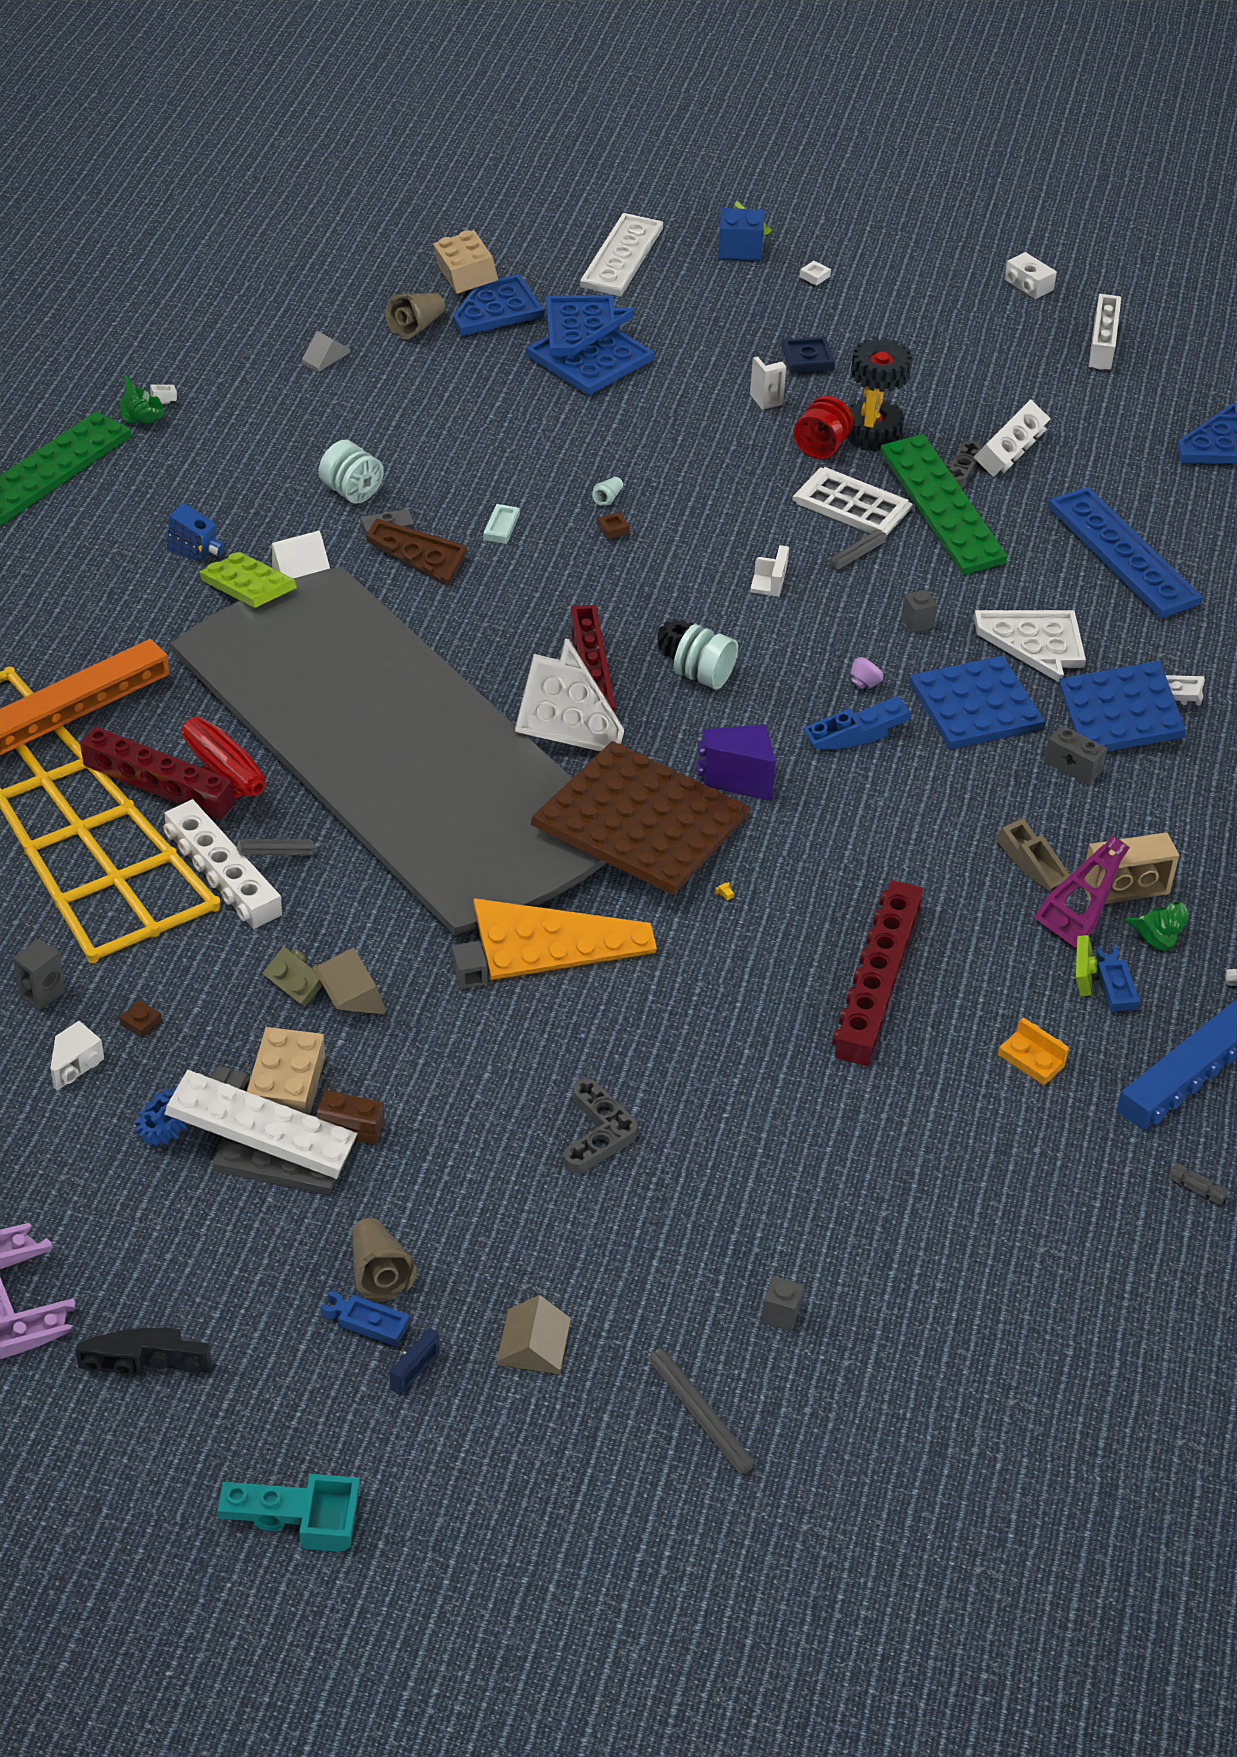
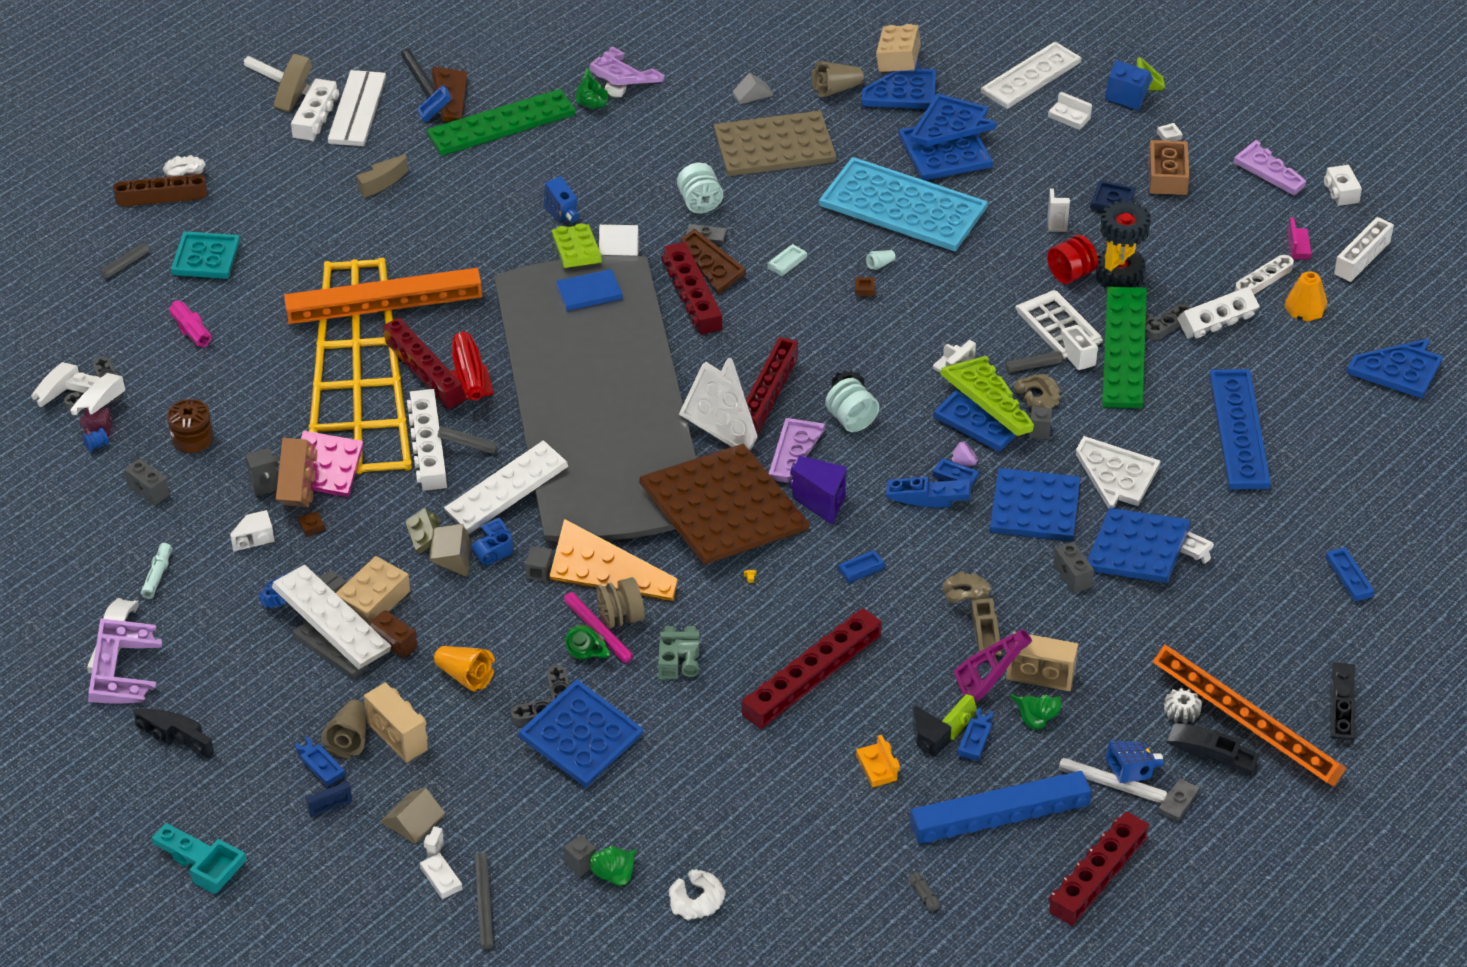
camera: 30 degrees right, 0 degrees up
(95, 958) = (296, 472): none -> medium nougat brick
(112, 937) = (335, 462): none -> plate
(159, 373) = (619, 73): none -> lavender wing
(302, 624) = (589, 290): none -> blue tile
(365, 886) = (506, 487): none -> white plate
(392, 402) = (774, 143): none -> dark tan plate
(396, 957) = (495, 544): none -> blue piece
(419, 586) = (692, 288): none -> dark red brick
(439, 1226) = (396, 722): none -> tan brick
(469, 1121) = (466, 665): none -> light orange cone
(588, 425) = (903, 203): none -> medium azure plate
(589, 1362) = (434, 842): none -> white plate
(594, 1016) = (594, 622): none -> dark pink axle
(599, 1040) = (585, 643): none -> green hair
(609, 975) = (615, 604): none -> dark tan wheel
(624, 1401) = (441, 876): none -> white plate
(667, 727) = (795, 439): none -> lavender wing
(672, 1151) = (581, 733): none -> blue plate
(694, 278) = (1071, 111): none -> white bracket
(706, 1006) = (675, 646): none -> sand green hips
(832, 1299) = (613, 865): none -> green hair
(842, 836) = (861, 566): none -> blue tile
(844, 596) = (982, 385): none -> lime wing
(845, 305) = (1168, 167): none -> medium nougat brick
(848, 631) = (973, 420): none -> blue plate
(866, 695) = (951, 471): none -> blue plate
(889, 568) = (1046, 384): none -> dark tan piece
(900, 517) = (1079, 347): none -> white slope
(945, 280) = (1263, 164): none -> lavender wing
(957, 1313) = (704, 904): none -> white piece
(992, 816) = (979, 588): none -> dark tan piece
(1020, 388) = (1266, 278): none -> white beam
(1028, 344) = (1298, 242): none -> dark pink panel
(1062, 994) = (930, 732): none -> black slope
(1087, 395) = (1307, 297): none -> light orange cone

